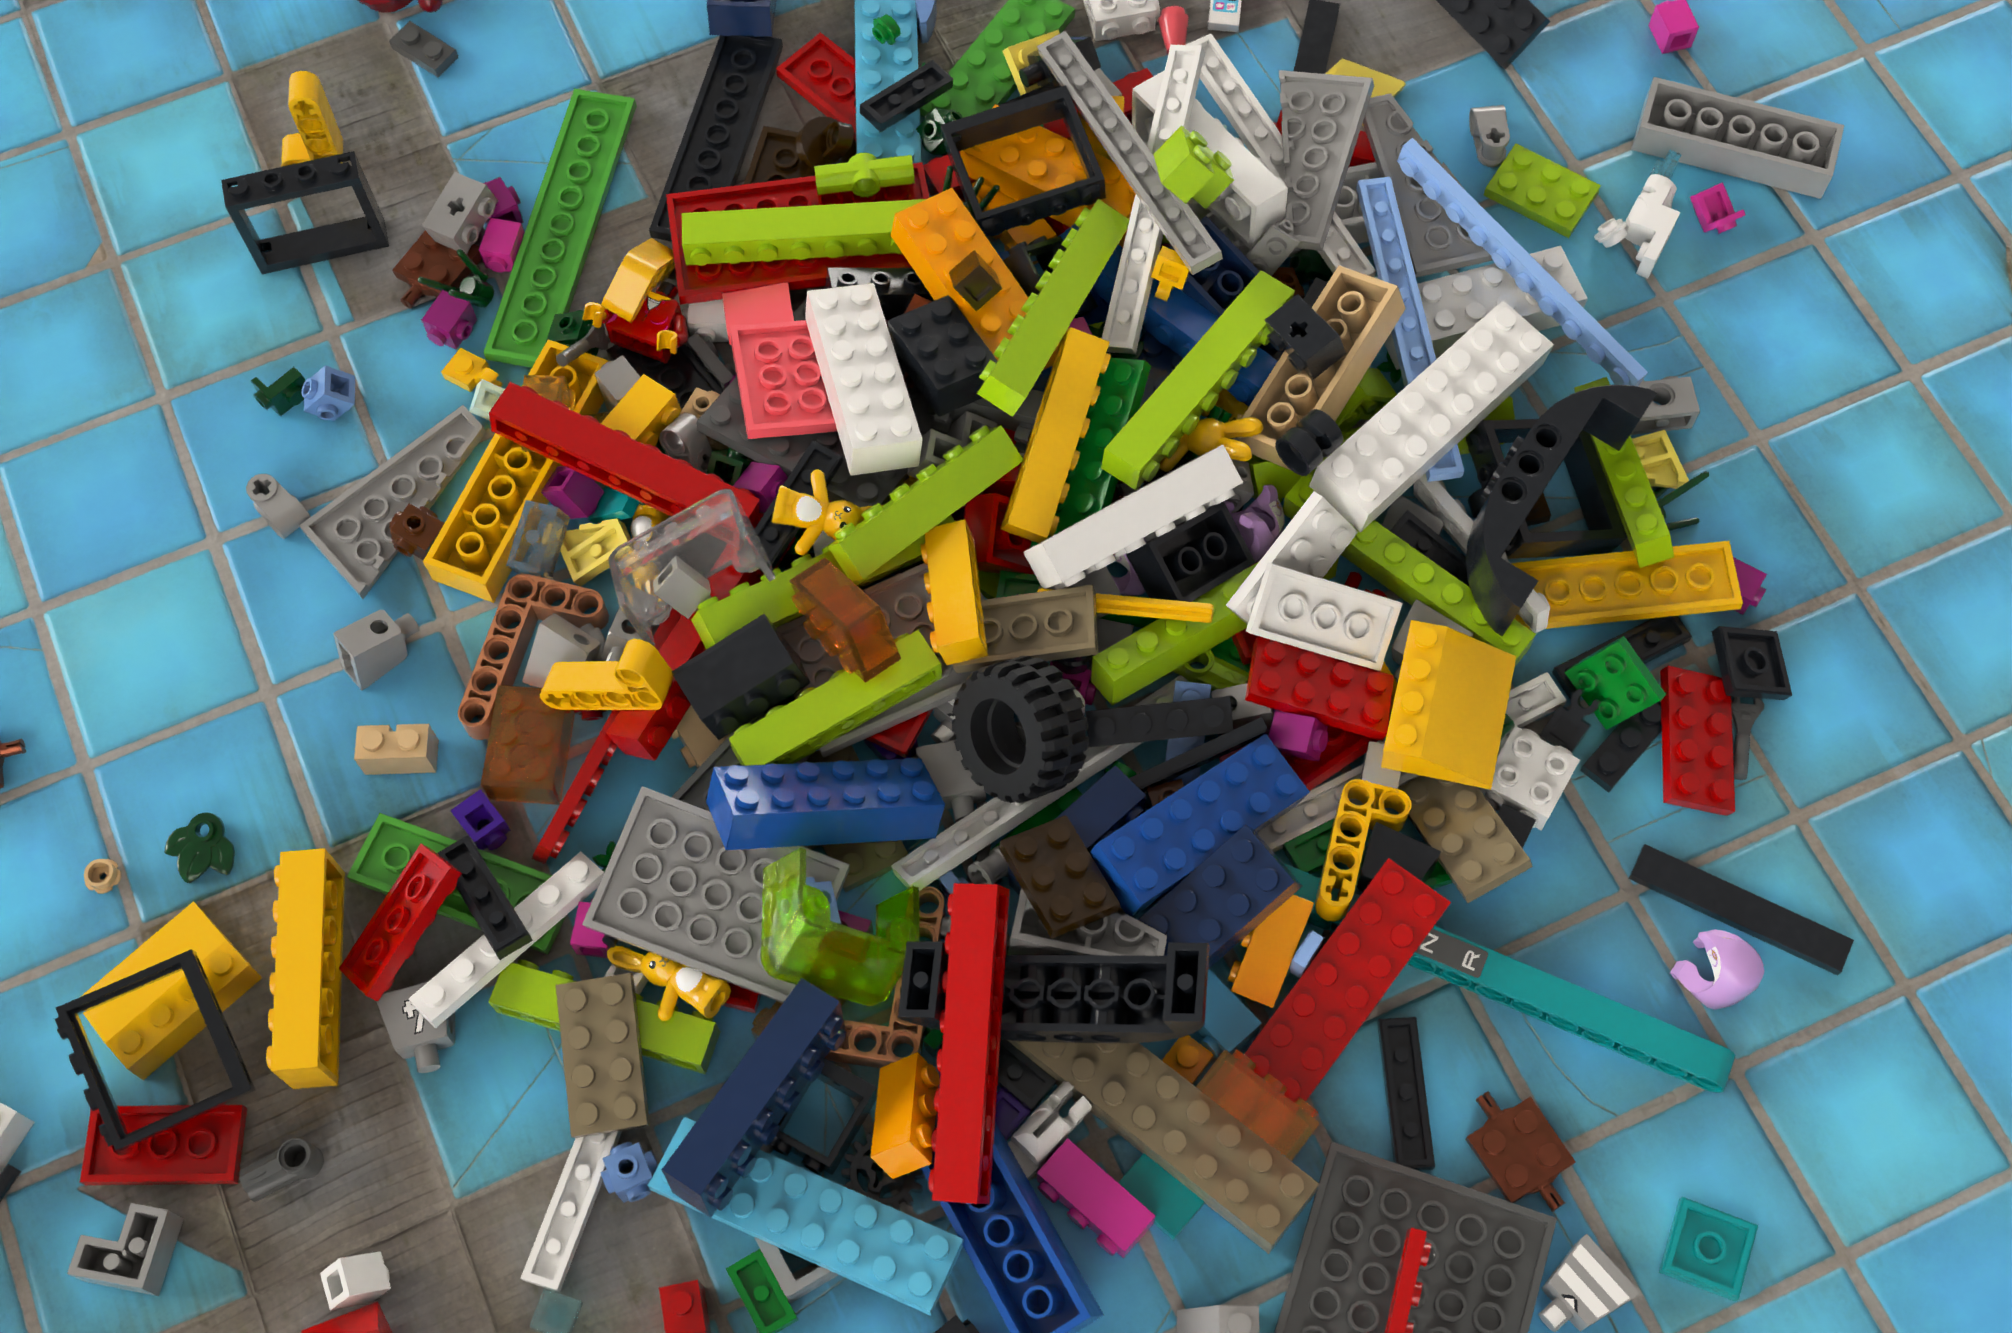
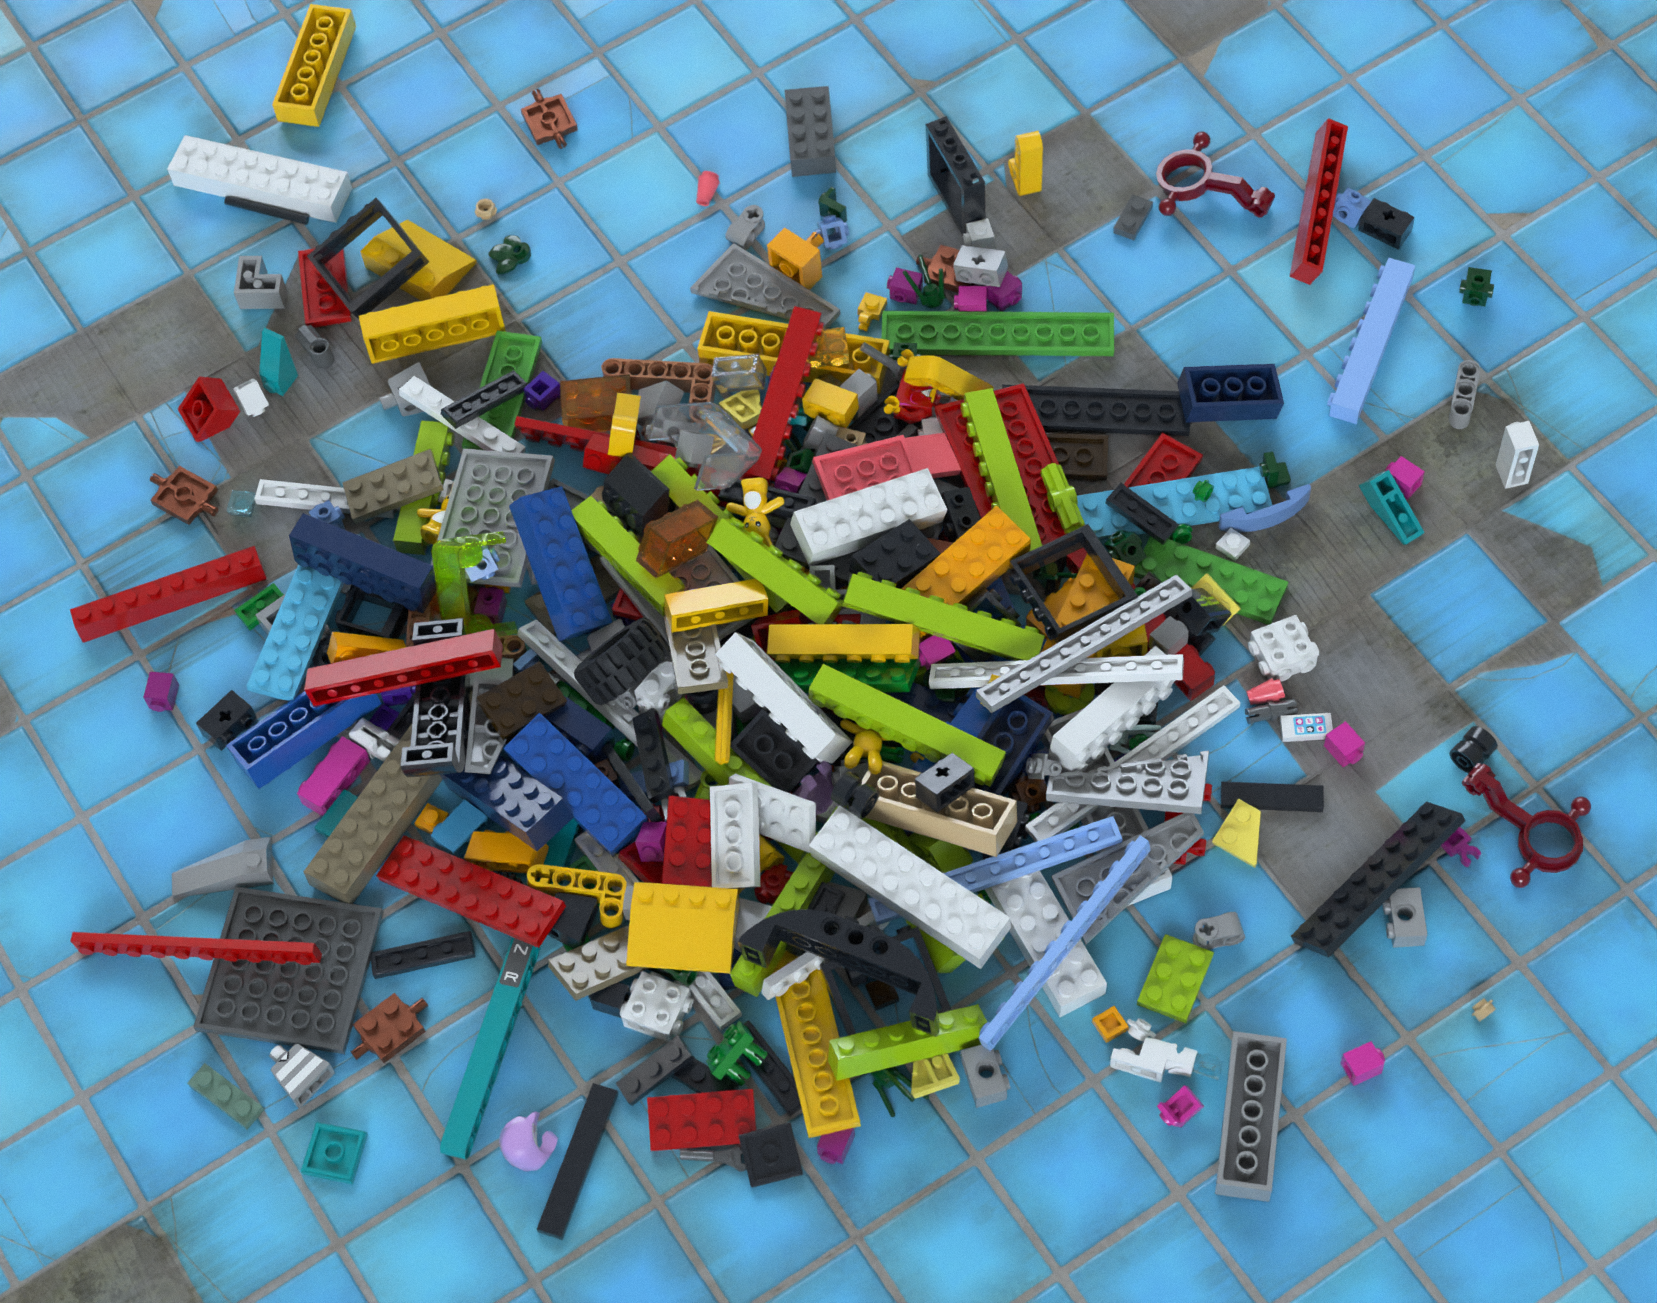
camera: 85 degrees right, 5 degrees down
(134, 399) = (810, 131): none -> dark grey brick
(181, 551) = (707, 186): none -> coral cone
(310, 1226) = (276, 363): none -> teal slope
(361, 438) = (796, 257): none -> light orange brick
(373, 646) = (651, 303): light grey torso -> none
(400, 218) = (979, 234): none -> white brick
(400, 922) = (465, 361): red plate -> none
(403, 751) = (584, 335): tan piece -> none
(414, 530) = (734, 302): reddish brown brick -> none
(485, 398) = (847, 320): light aqua plate -> none
(825, 142) = (1094, 475): dark brown tile -> none
(954, 30) = (1232, 544): none -> white plate
(975, 280) = (946, 562): dark brown panel -> none
(1192, 168) = (1067, 678): lime brick -> none
(1198, 21) = (1271, 711): none -> dark grey pin
(1260, 1103) = (388, 848): clear orange brick -> none
(1305, 954) = (499, 867): light blue tile -> none
(1567, 726) = (701, 1028): black plate -> none
(1599, 263) = (1110, 1024): none -> light orange plate
(1624, 789) = (655, 1070): none -> black plate

